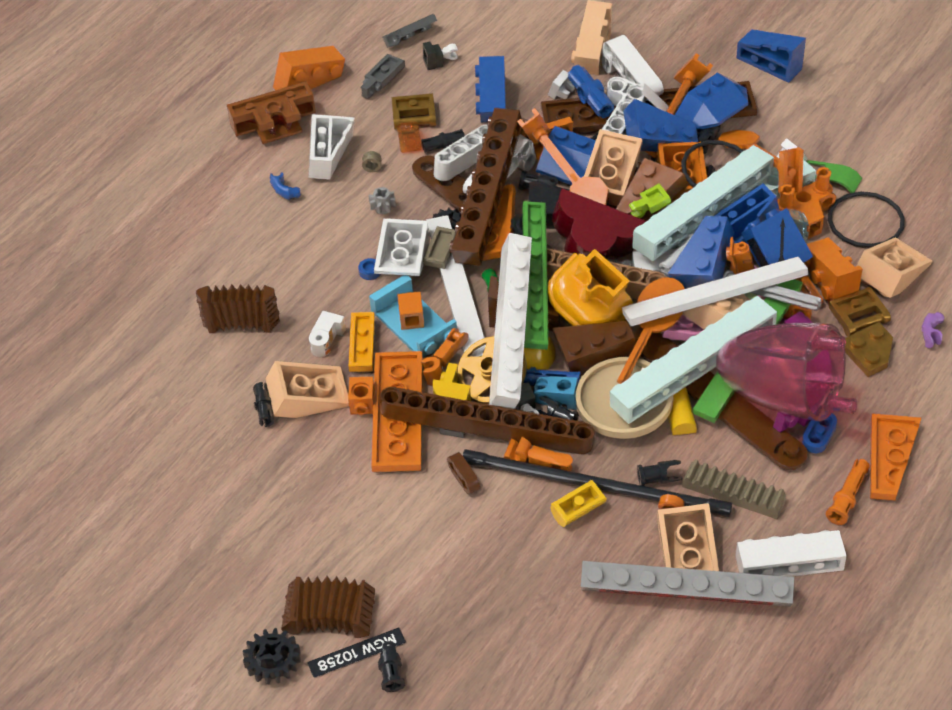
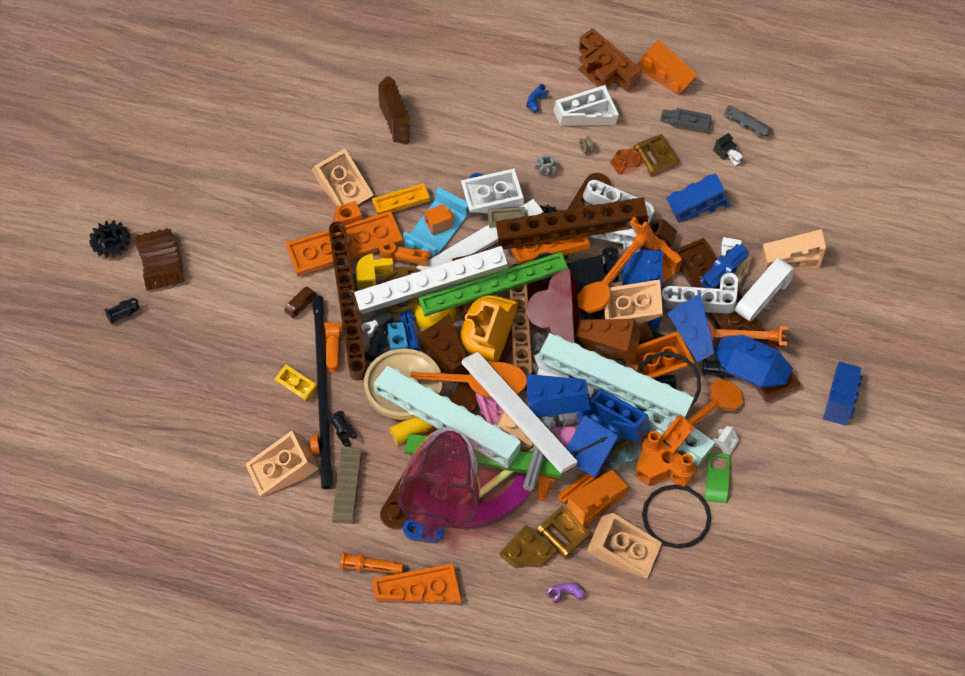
camera: 65 degrees right, 10 degrees up
(263, 404) = (316, 160): black pin -> none
(324, 332) = (398, 173): white leg -> none
(354, 652) = (133, 288): black sticker -> none
(441, 141) = (632, 185): black pin -> none
(651, 199) = (592, 338): lime plate -> none
(654, 98) = (732, 314): white sticker -> none
(687, 583) = (242, 473): light grey brick -> none
(740, 257) = (565, 422): orange hinge -> none
(792, 554) = (294, 537): white brick -> none

